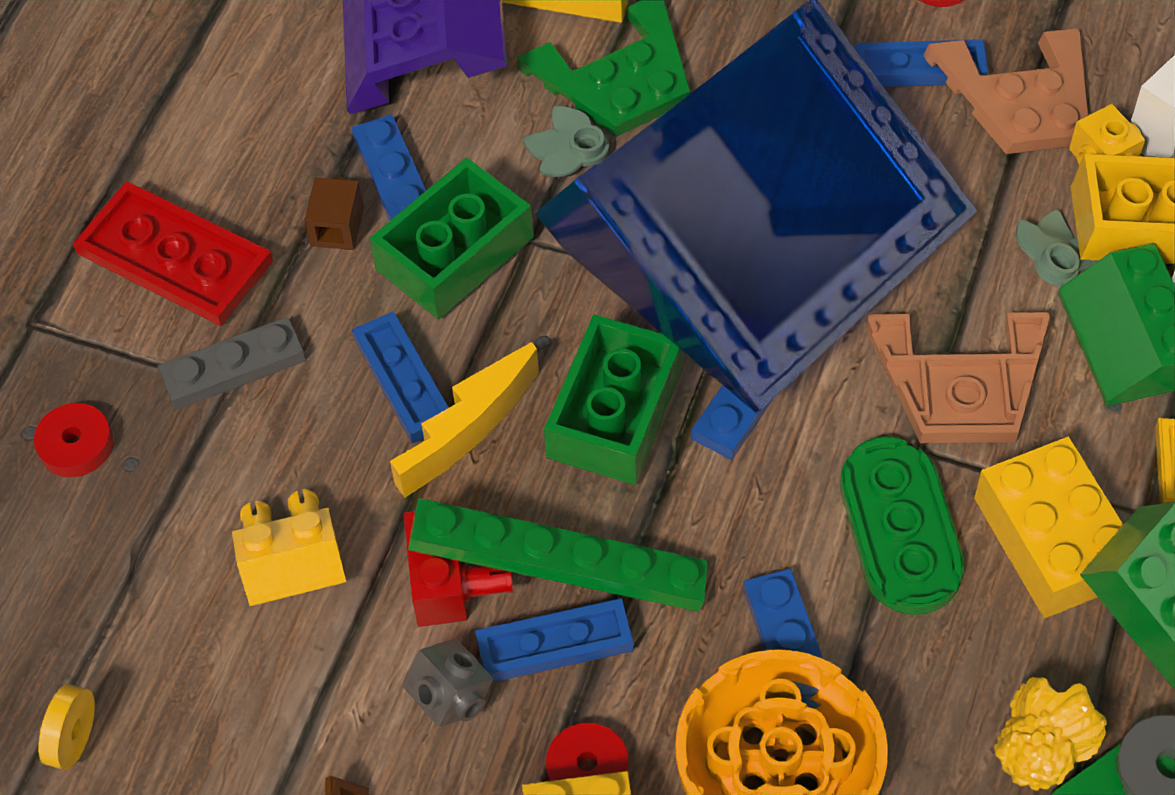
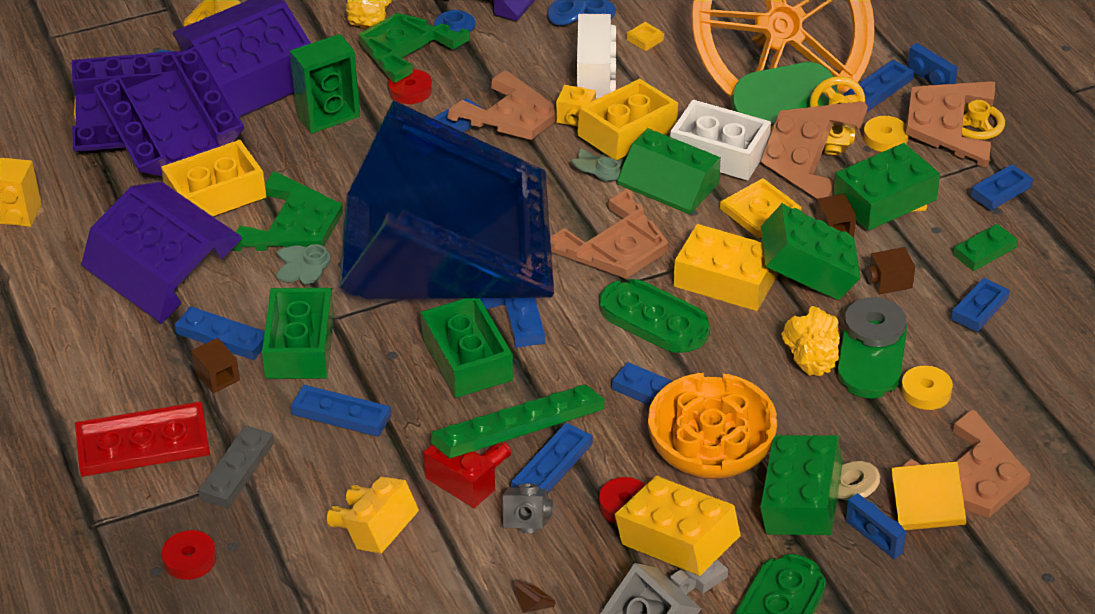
camera: 45 degrees left, 15 degrees down
(478, 408) = (398, 414): yellow slope -> none

